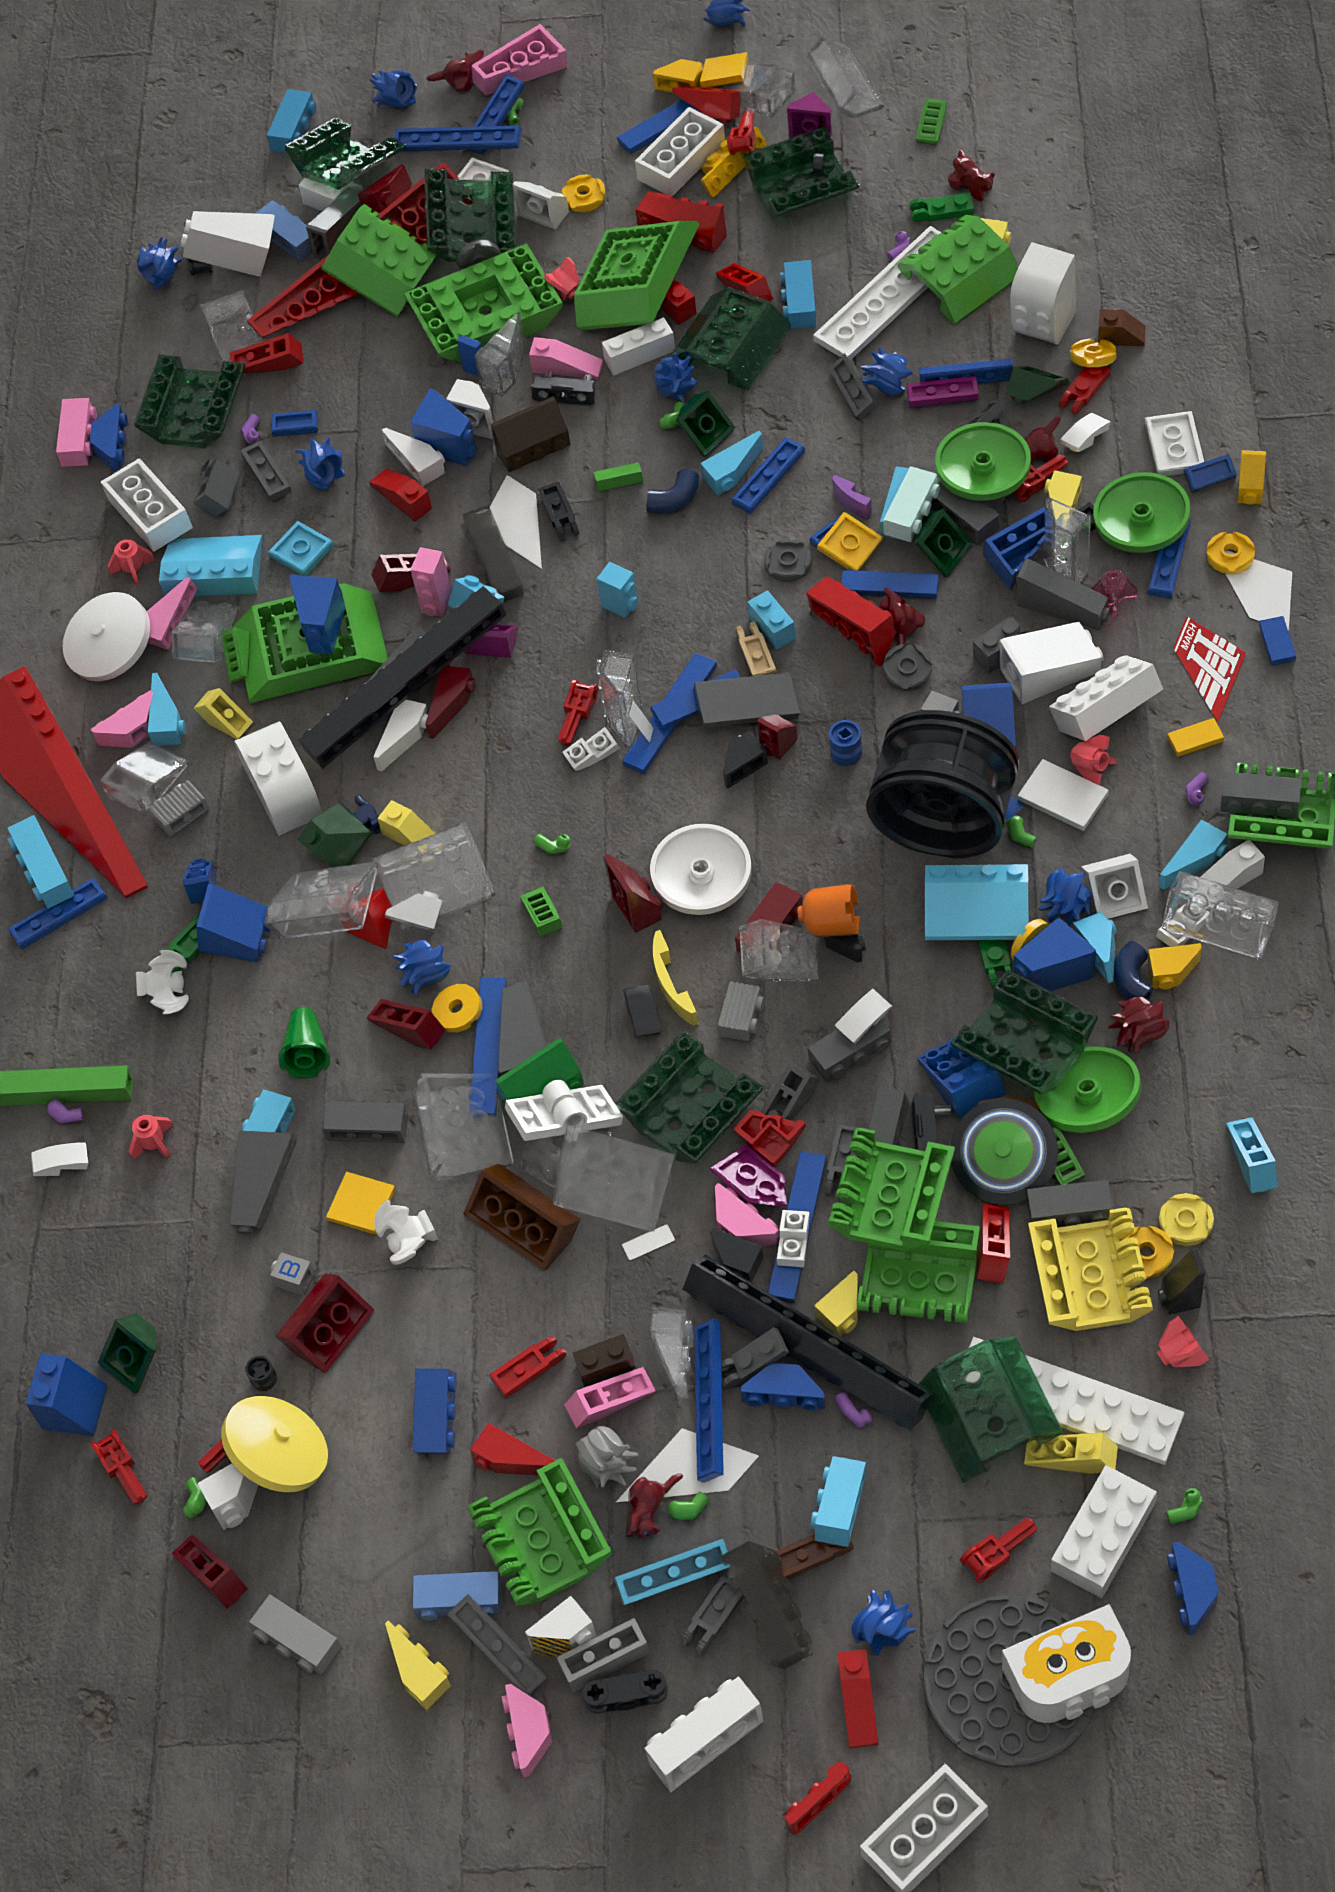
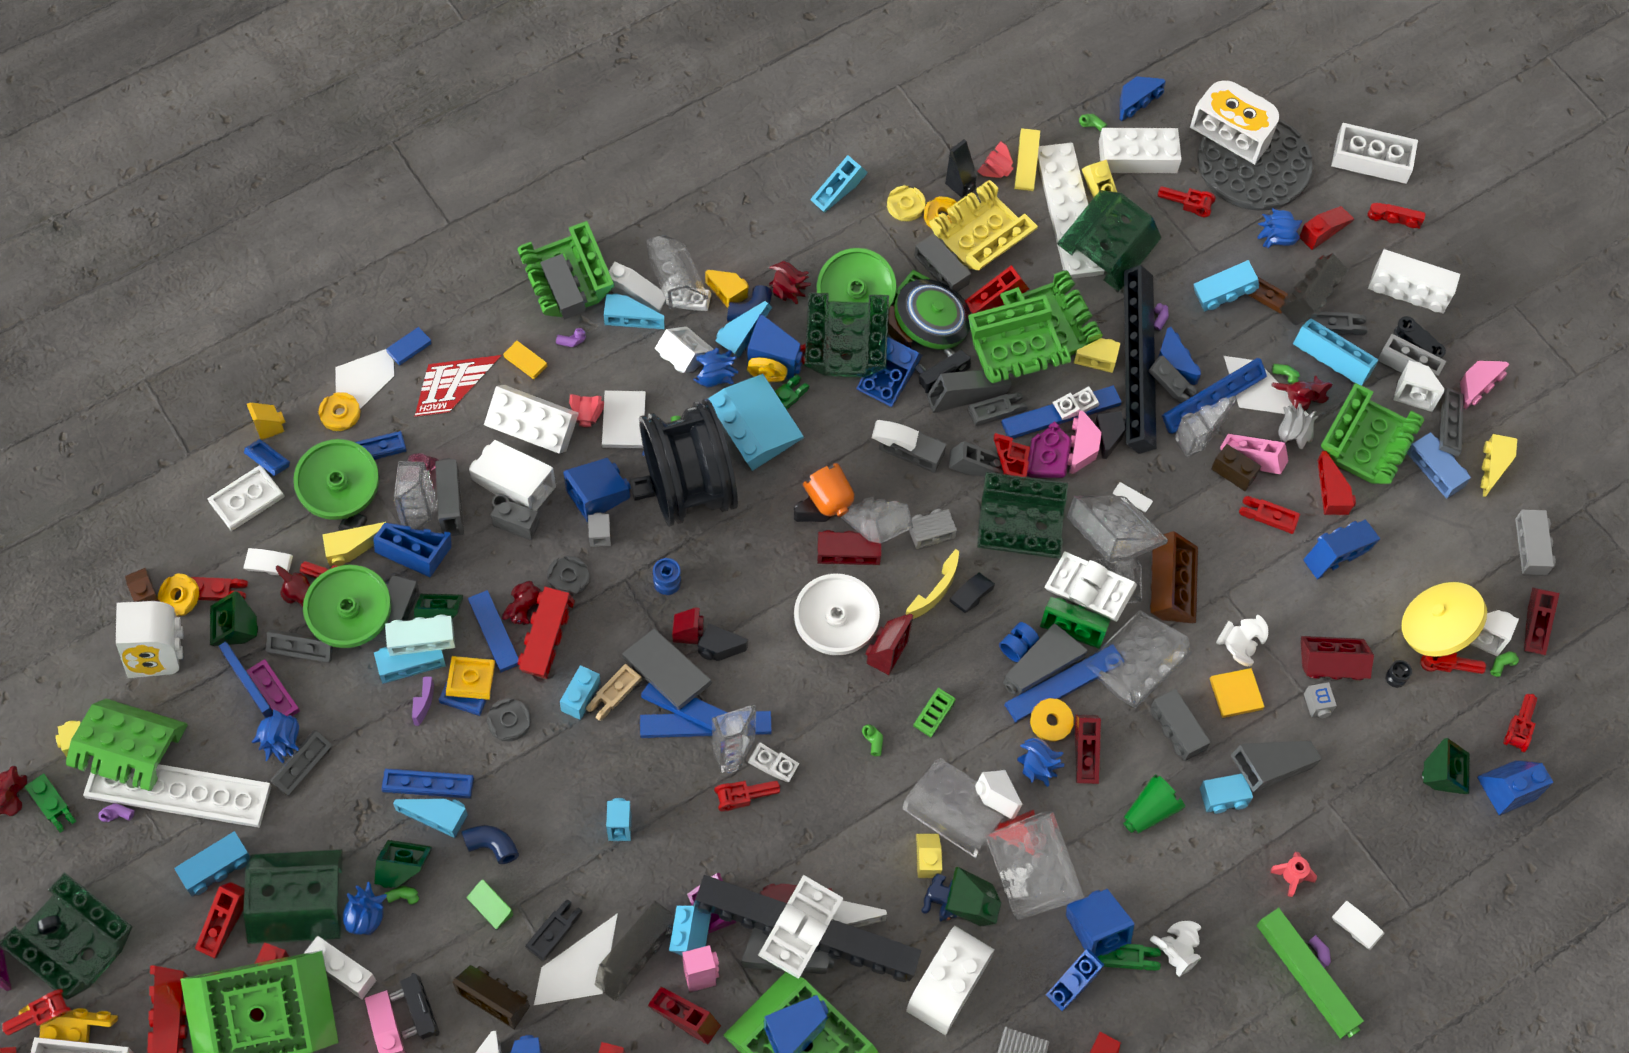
camera: 135 degrees left, 5 degrees up
(400, 656) = (800, 926): none -> white plate
(556, 1019) = (1019, 641): none -> blue wheel
(1168, 1387) = (1027, 159): none -> light yellow slope

